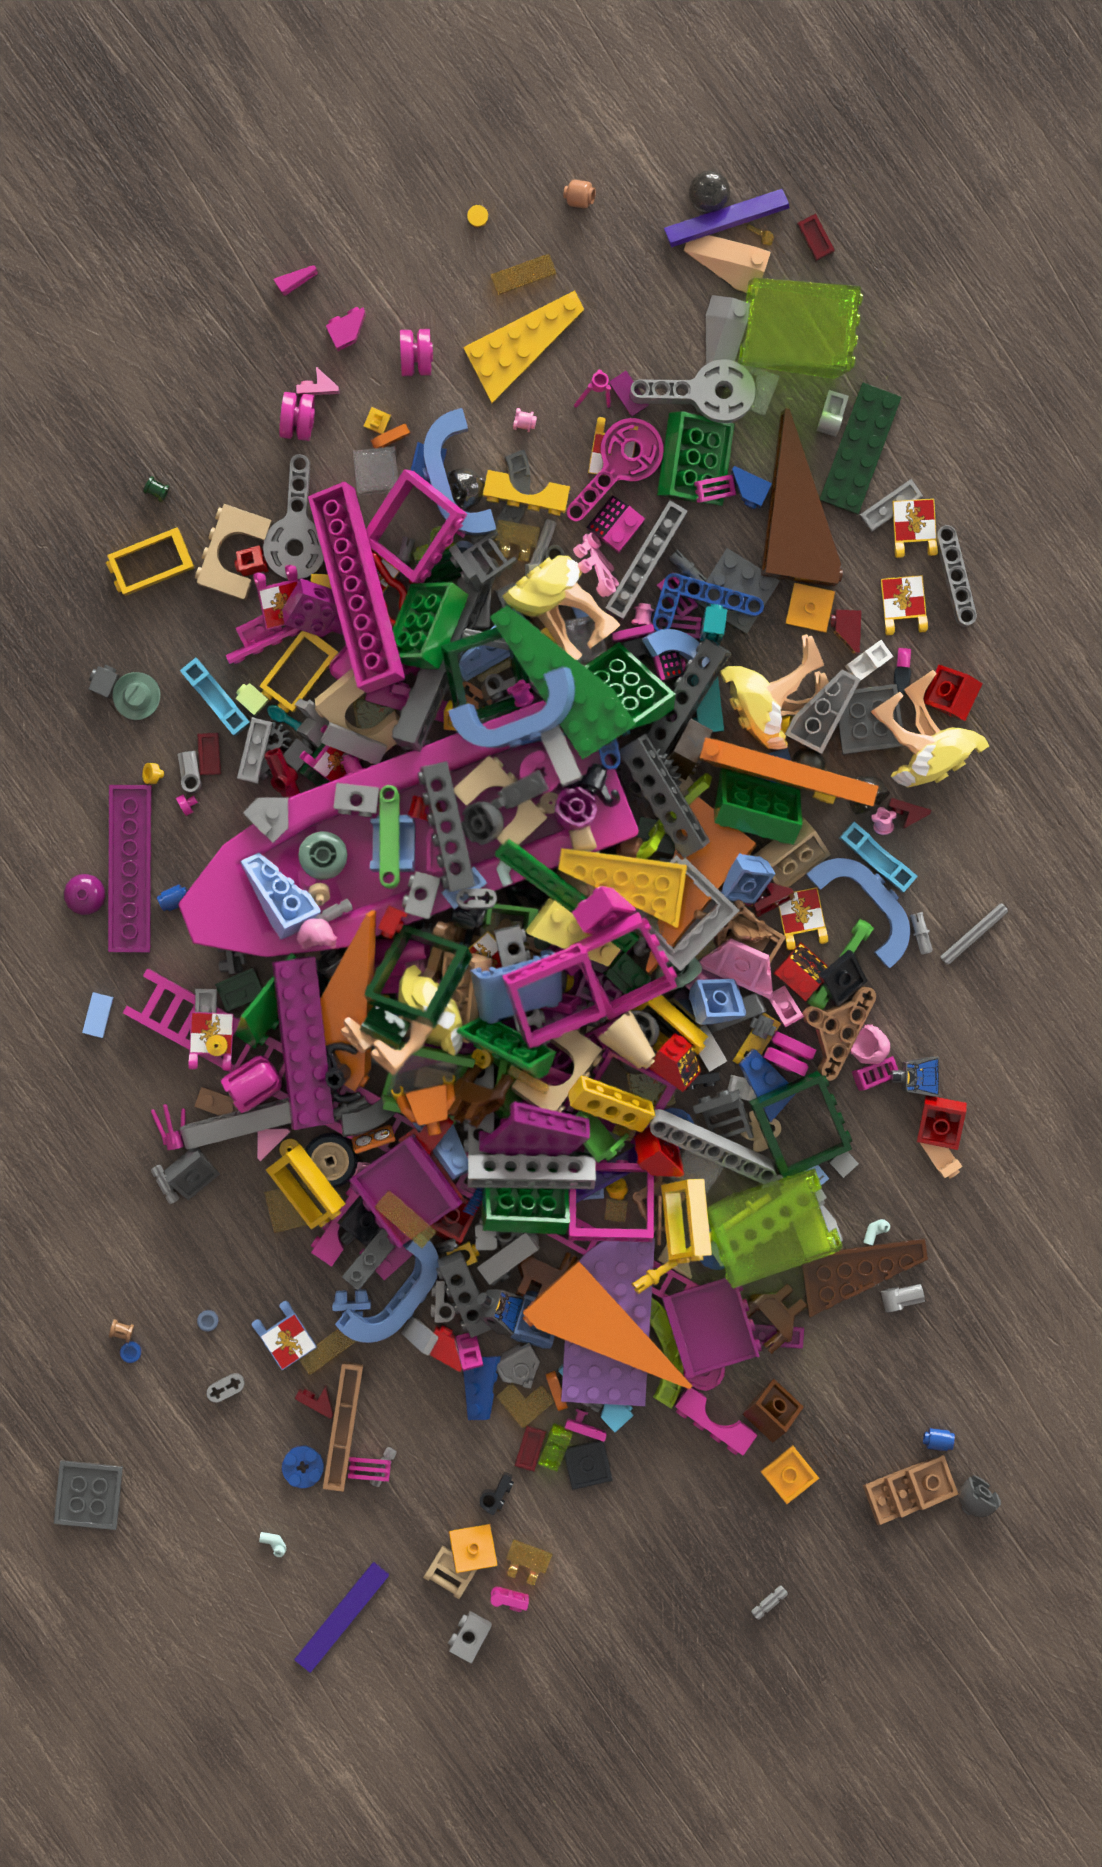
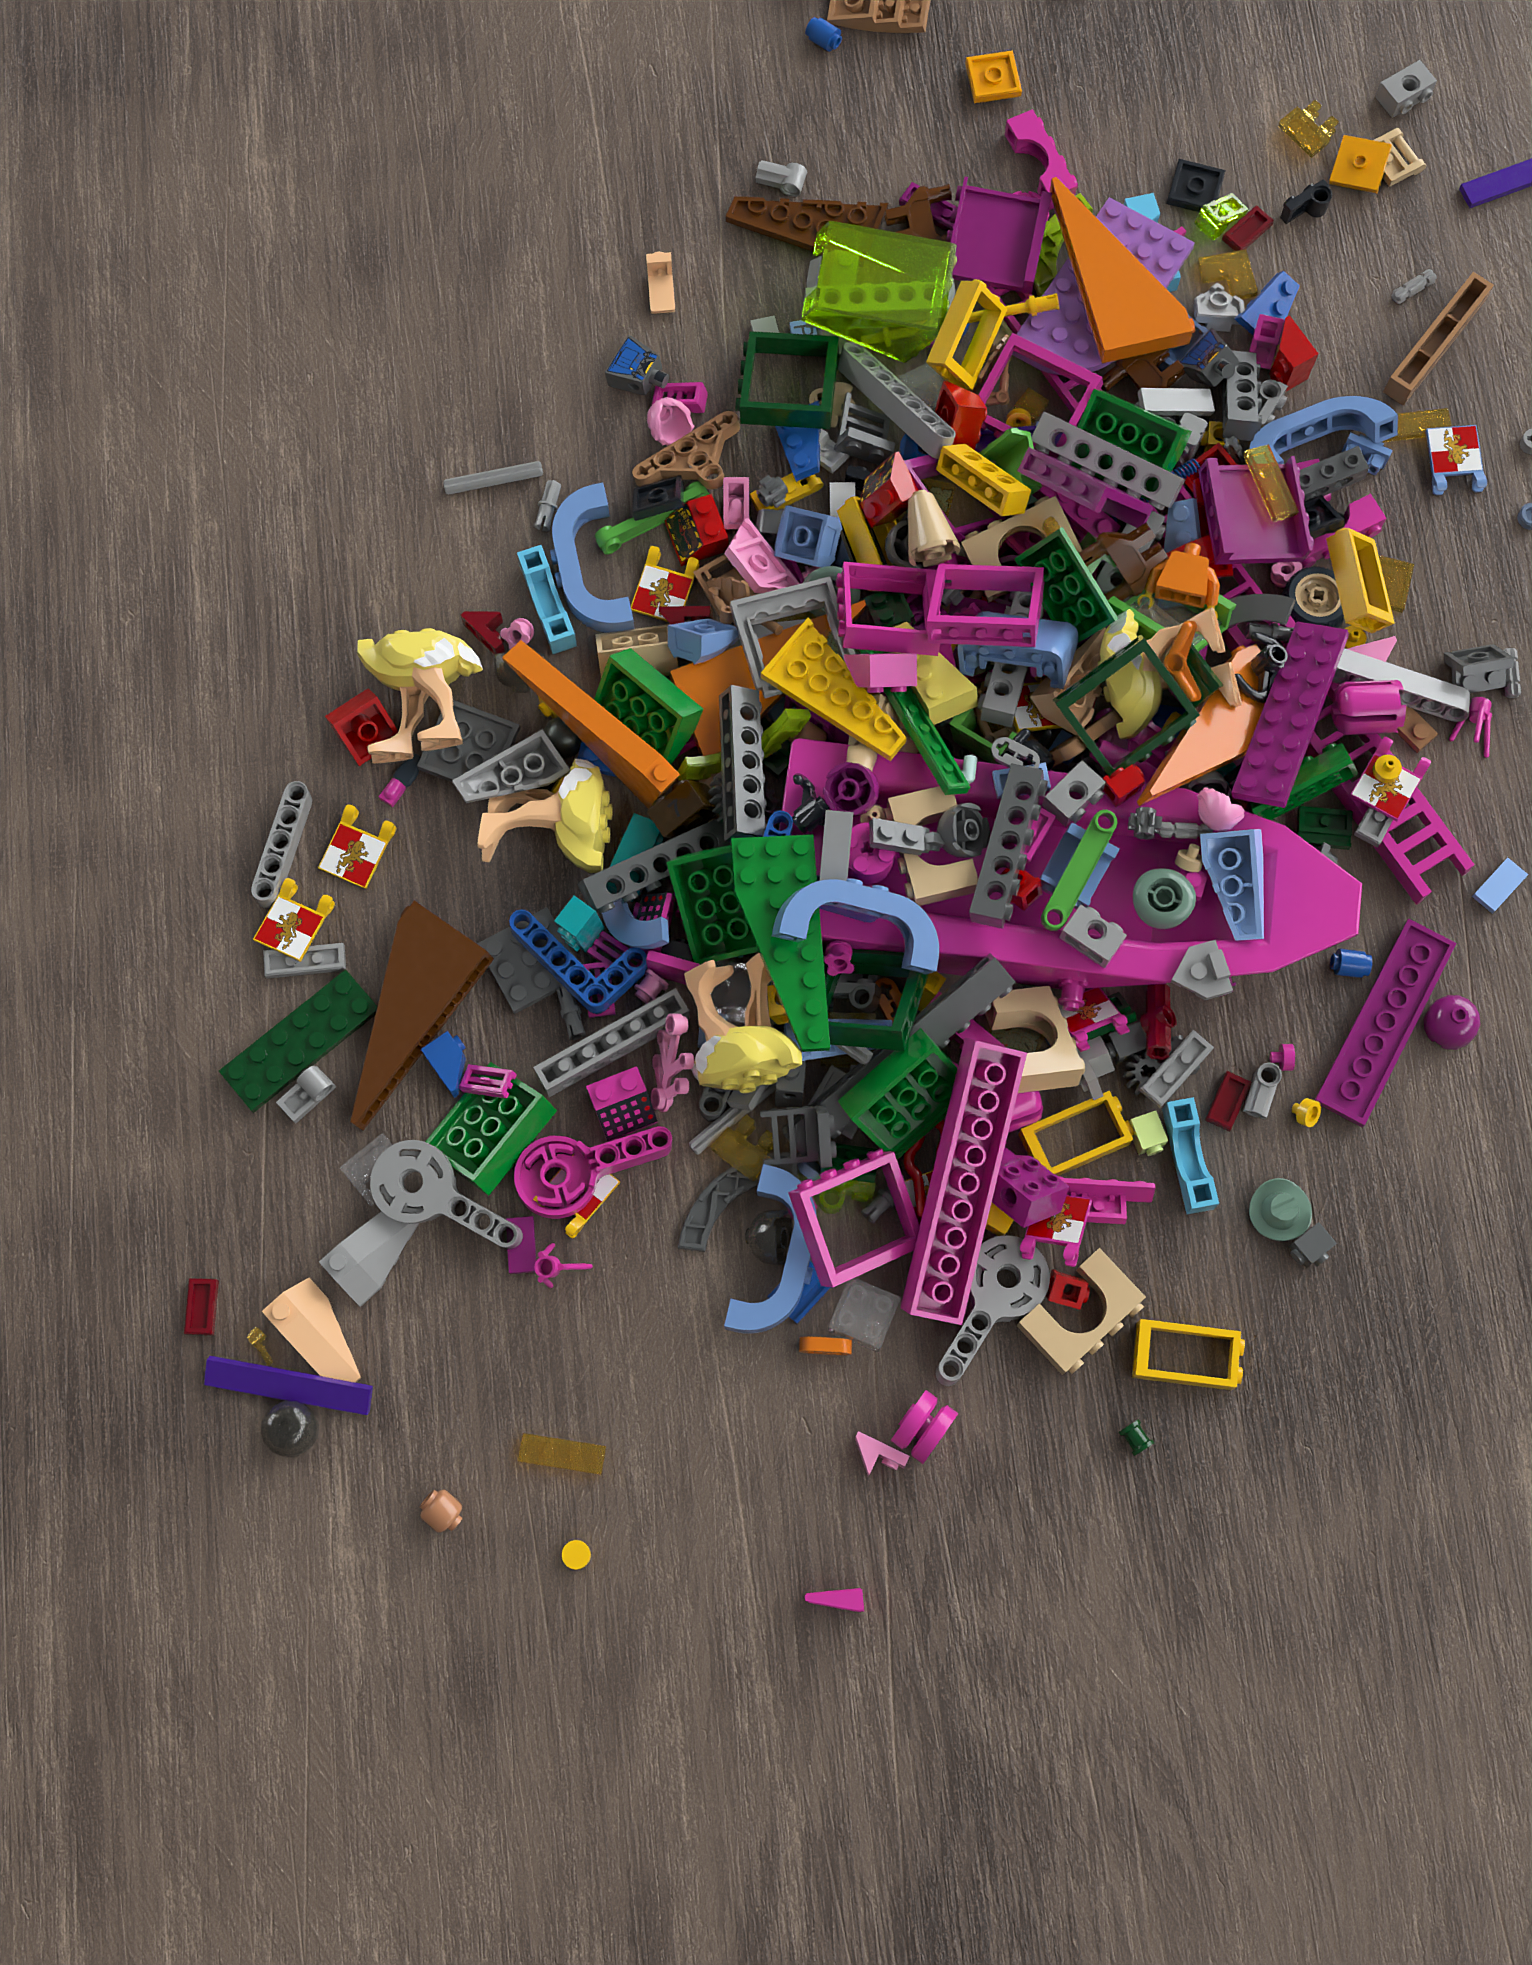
camera: 150 degrees left, 15 degrees down
(280, 715) = (1128, 1103): teal piece -> none
(296, 1477) = (1504, 315): blue plate -> none
(322, 1404) = (1453, 374): dark red slope -> none
(346, 330) = (808, 1502): dark pink slope -> none
(353, 743) = (1059, 1010): light grey tile -> none
(353, 1467) = (1432, 283): dark pink tile -> none
(362, 900) = (1145, 823): none -> dark grey gear
(373, 1139) = (1253, 583): slope -> none
(377, 420) = (830, 1375): yellow tile -> none
(399, 1024) = (1177, 661): none -> orange piece
(416, 352) = (739, 1423): dark pink wheel -> none
(419, 1335) = (1312, 374): light grey tile -> none
(499, 487) = (678, 1169): yellow arch -> none
(513, 348) = (628, 1371): yellow wing -> none
(516, 1600) = (1340, 94): dark pink plate -> none
(524, 420) = (659, 1278): bright pink brick -> none
(556, 1390) = (1191, 267): orange beam -> none
(585, 1429) = (1181, 215): dark pink tile -> none
(773, 1410) = (976, 138): reddish brown slope -> none
(788, 1055) = (759, 452): dark pink wheel -> none
(801, 327) = (277, 1200): clear neon green windscreen -> none
(810, 607) = (460, 899): light orange plate -> none
(848, 628) = (431, 853): dark red slope -> none
(869, 660) = (431, 809): white slope -> none
(874, 1229) = (768, 254): light aqua arm -> none
(941, 1122) = (640, 311): red slope -> none

